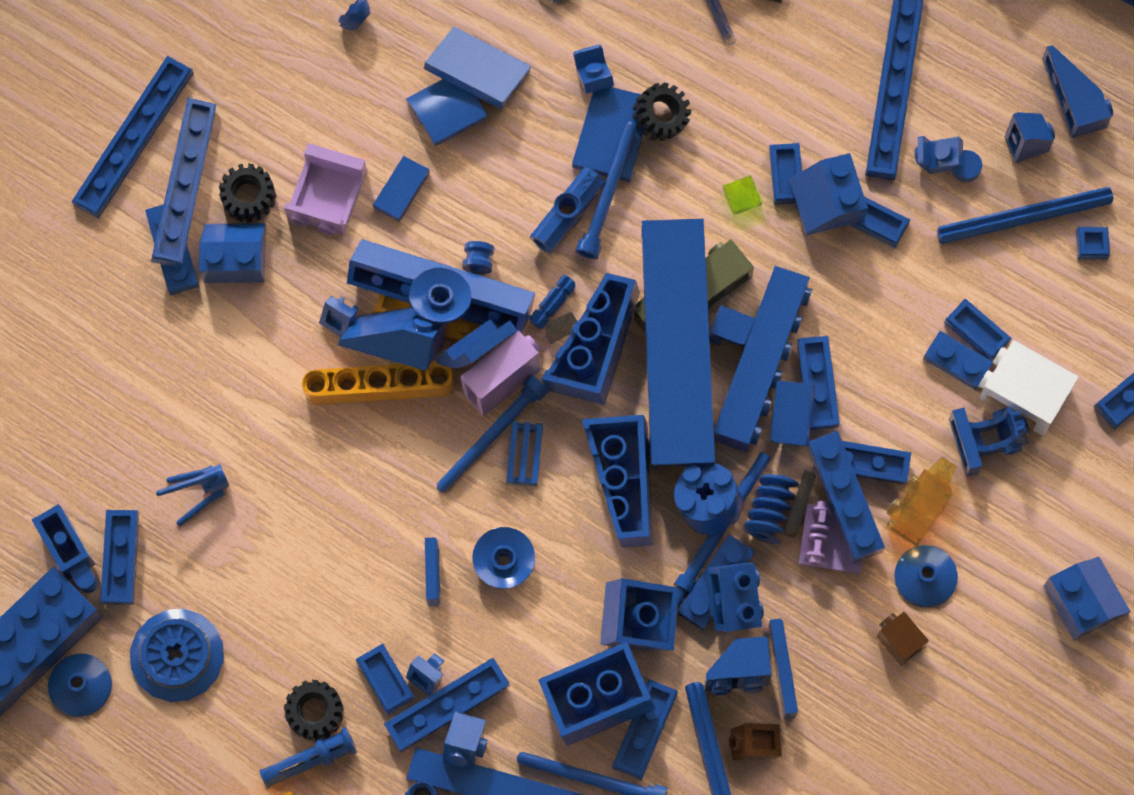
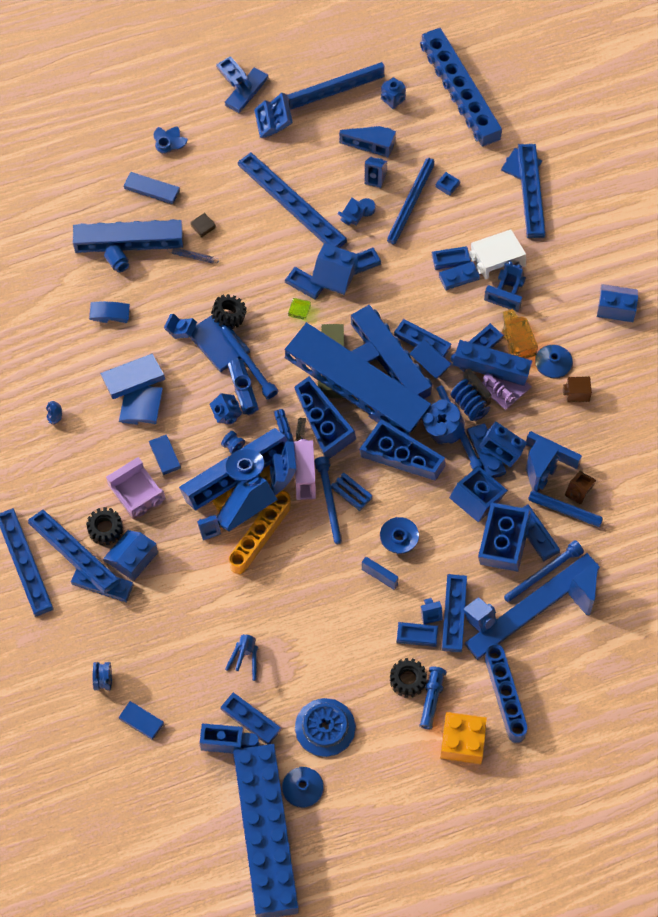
camera: 55 degrees left, 10 degrees down
(27, 429) = (141, 720): none -> blue tile
(45, 341) = (102, 676): none -> blue wheel
(517, 213) = (225, 408): none -> blue brick

